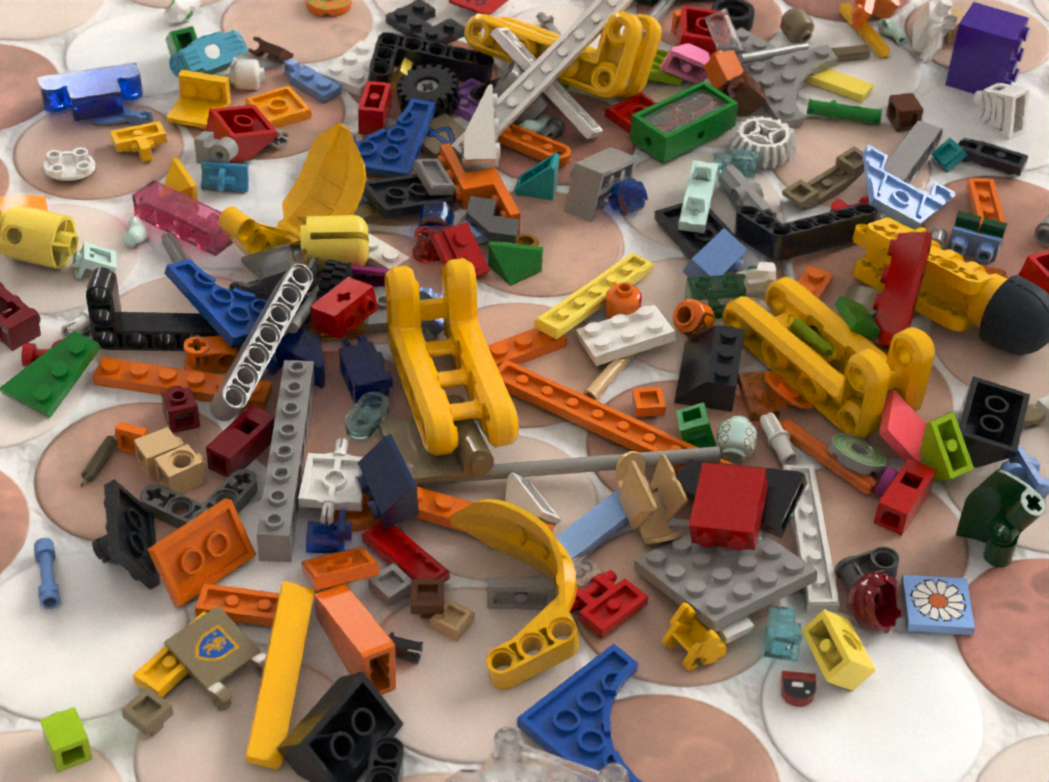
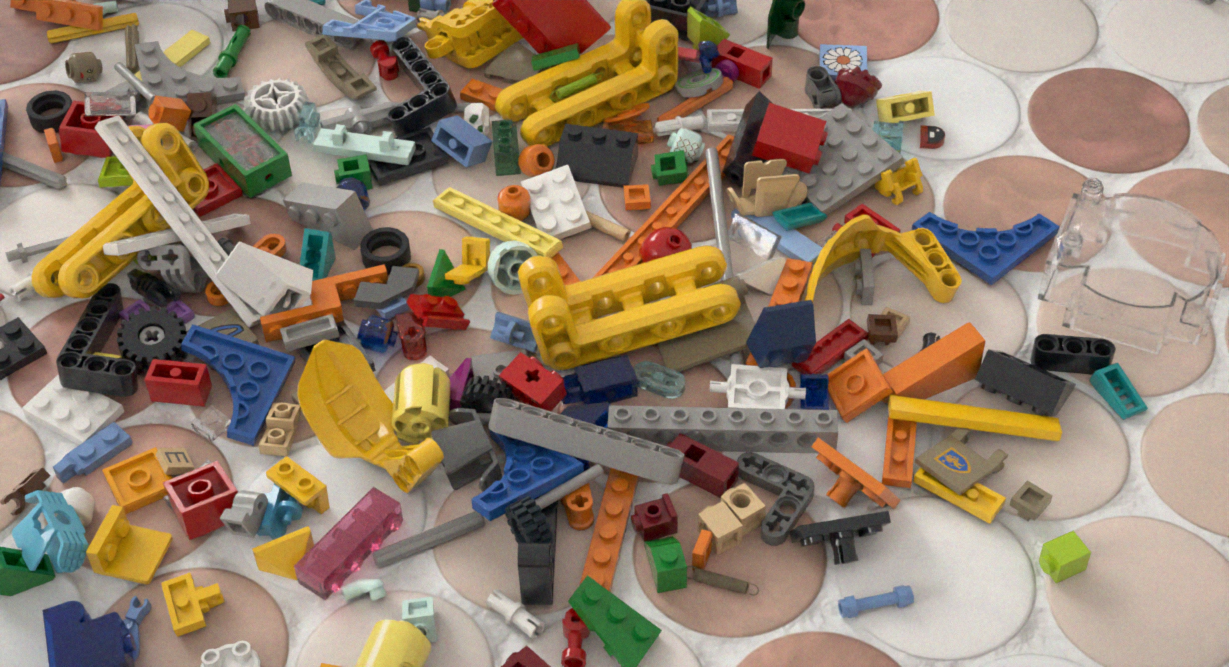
camera: 85 degrees left, 5 degrees up
(128, 408) = (667, 564): none -> green slope
(145, 288) = (528, 522): none -> black bush
(209, 332) = (569, 486): none -> light grey bar
(248, 181) = (300, 484): none -> yellow bracket
(292, 119) = (174, 461): none -> tan tile
(523, 301) = (505, 263): none -> light aqua cylinder
(525, 277) = (474, 260): none -> yellow bracket
(549, 417) = (663, 243): none -> red cylinder
(557, 211) = (385, 237): none -> black tyre
(592, 490) = (753, 236): none -> clear plate
(622, 535) = (799, 216): none -> teal tile
(663, 193) = (354, 167): none -> green brick
(900, 447) = (708, 52): none -> clear blue plate

